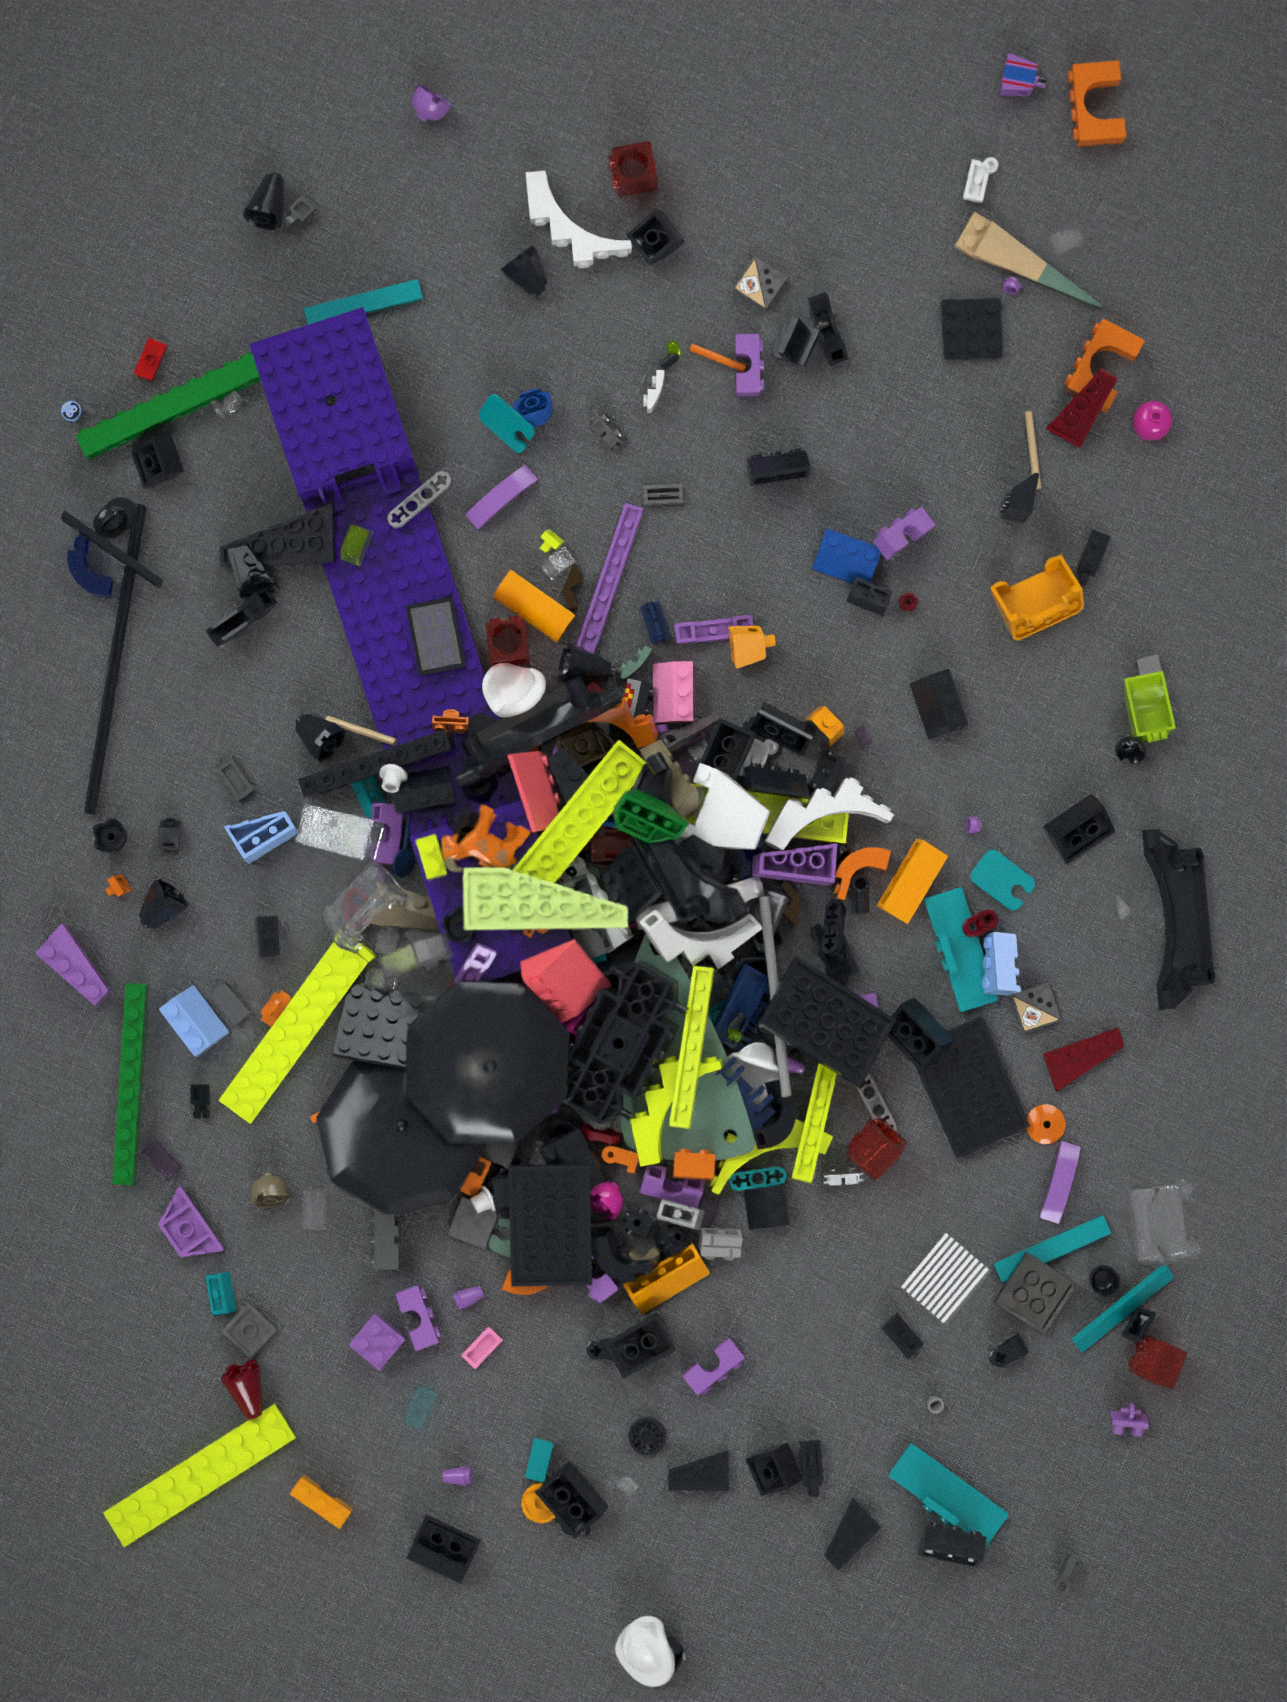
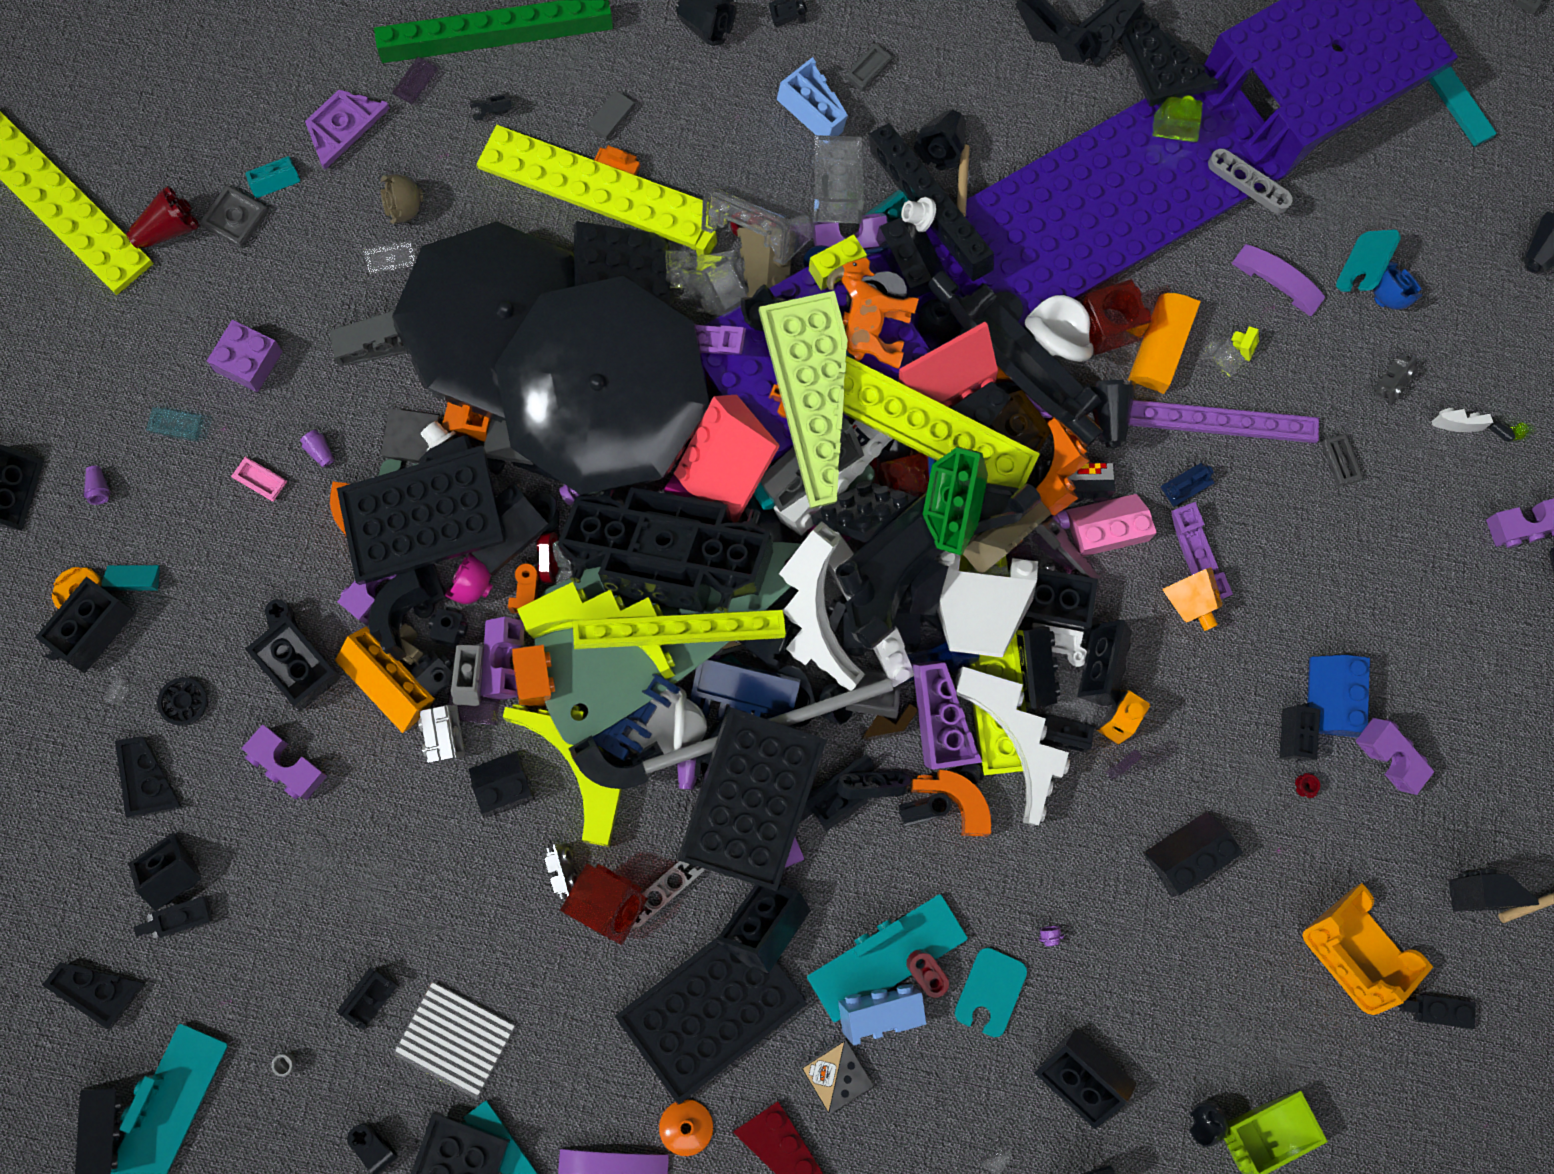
camera: 75 degrees right, 10 degrees down
(194, 1021) = (581, 78): light blue slope -> none
(267, 936) = (697, 132): black hinge -> none
(315, 1498) = (30, 346): light orange arch -> none
(414, 1300) = (301, 389): medium lavender arch -> none
(436, 636) = (1097, 234): clear piece -> none
(450, 721) = (1004, 271): orange piece -> none
(573, 581) = (1205, 377): dark brown slope -> none
(629, 669) = (1125, 470): sand green slope -> none
(717, 357) = (1525, 483): orange bar -> none
(733, 1027) = (716, 685): arm -> none
(741, 1174) = (521, 748): teal beam -> none
(778, 467) = (1420, 585): black slope -> none
(814, 1124) = (615, 815): neon yellow plate -> none
(912, 880) = (959, 872): light orange brick -> none
(1149, 665) = (1327, 1121): light grey slope -> none

